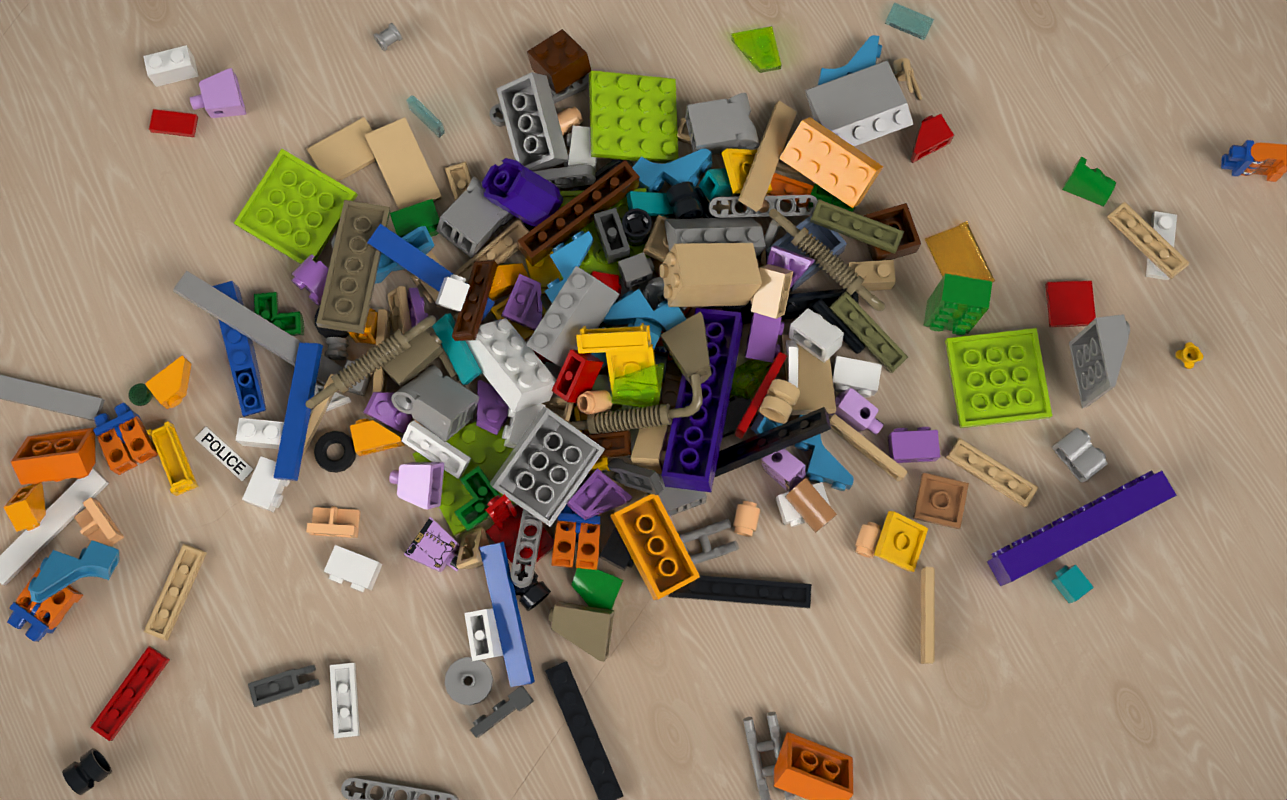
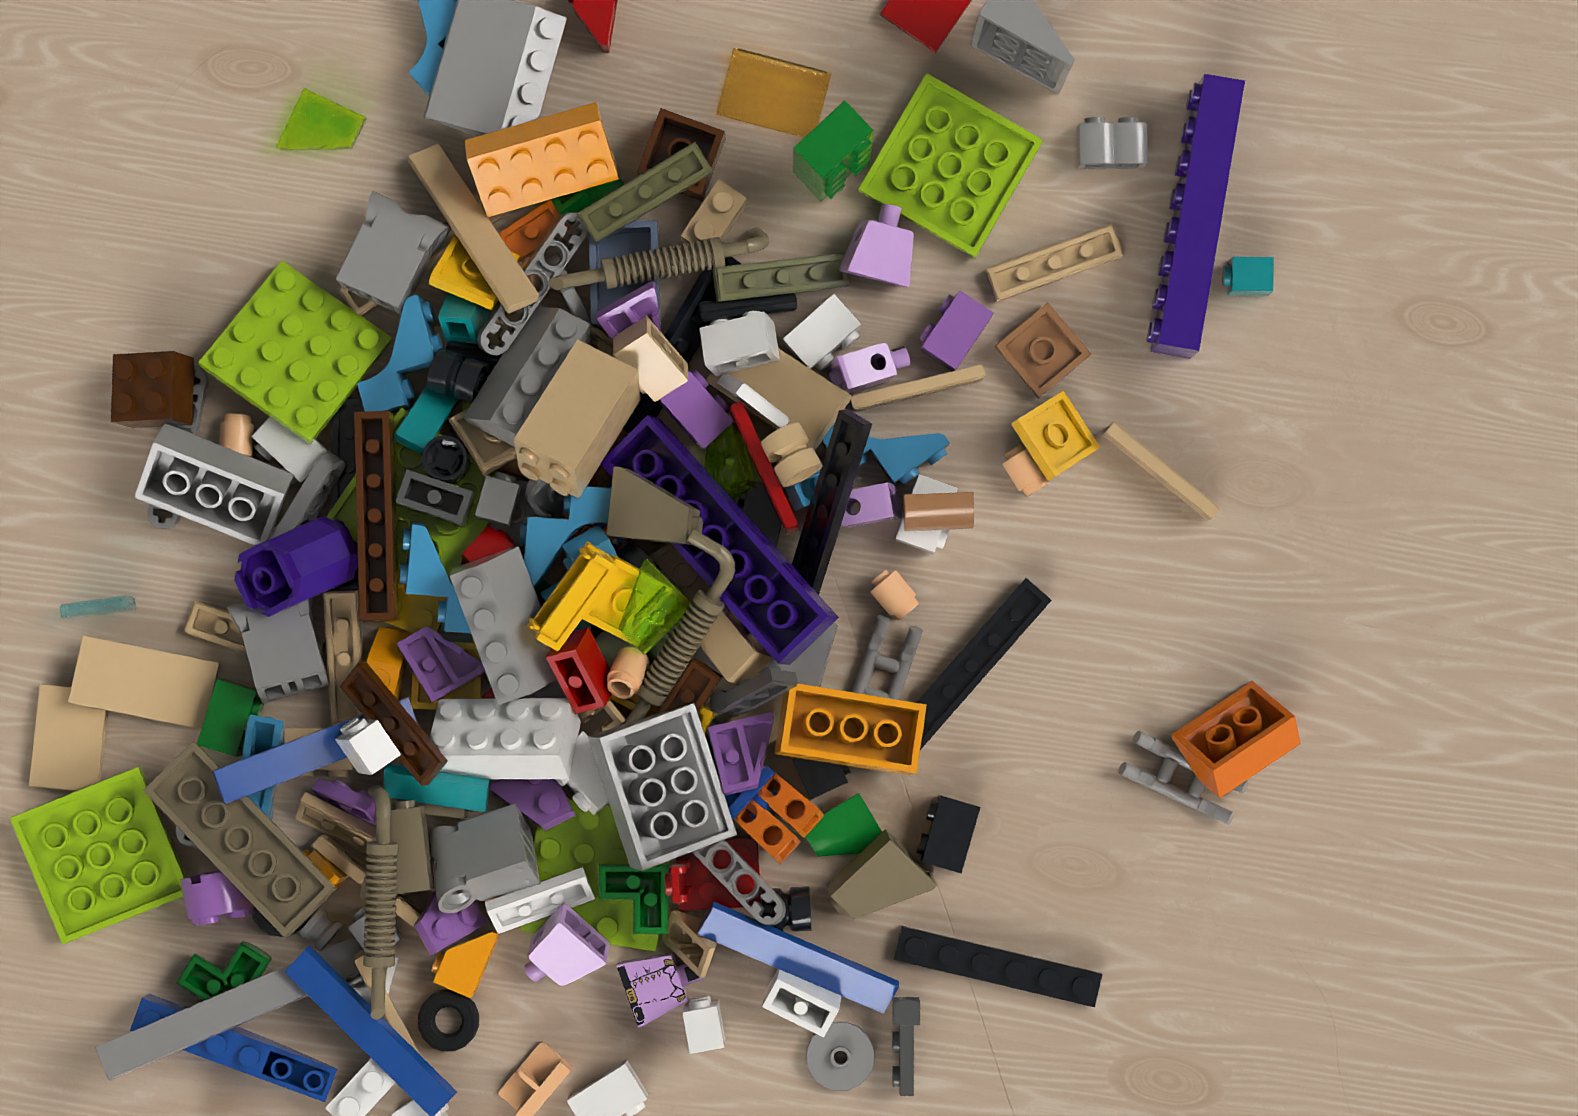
camera: 50 degrees left, 10 degrees up
(431, 589) = (703, 1024): none -> white brick
(638, 648) = (948, 834): none -> black brick
(924, 373) = (881, 249): none -> lavender torso

